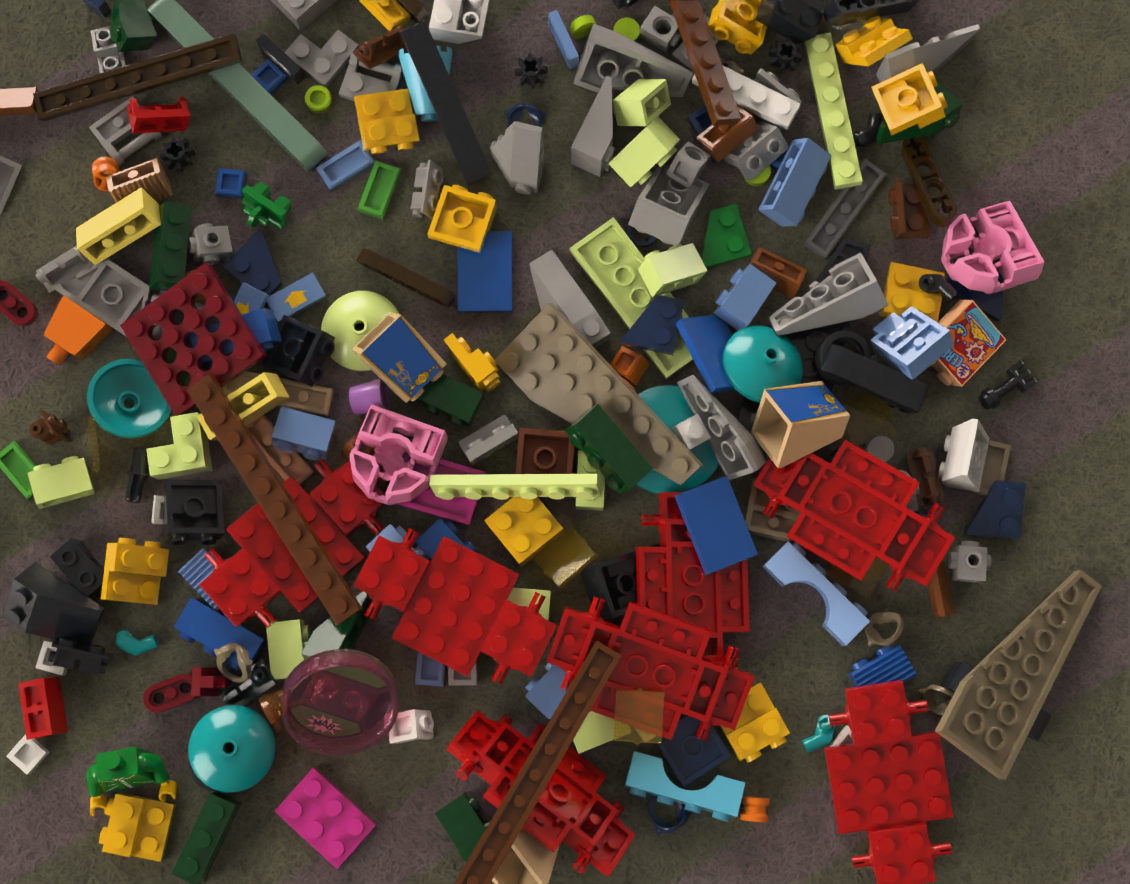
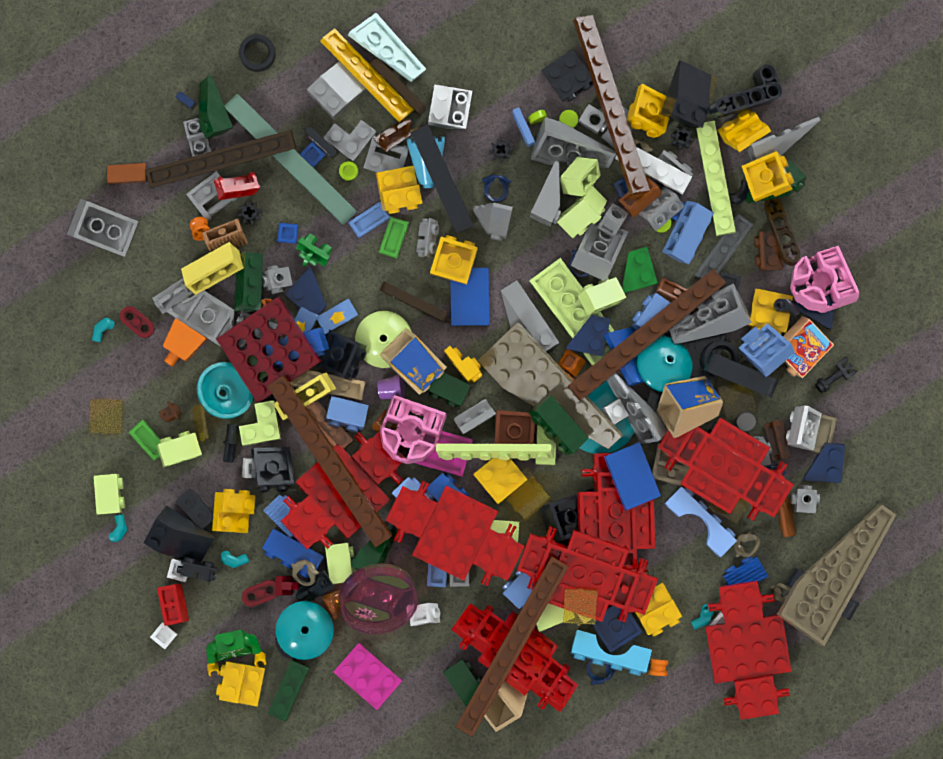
camera: 10 degrees left, 5 degrees up
(735, 322) = (646, 335): none -> reddish brown plate

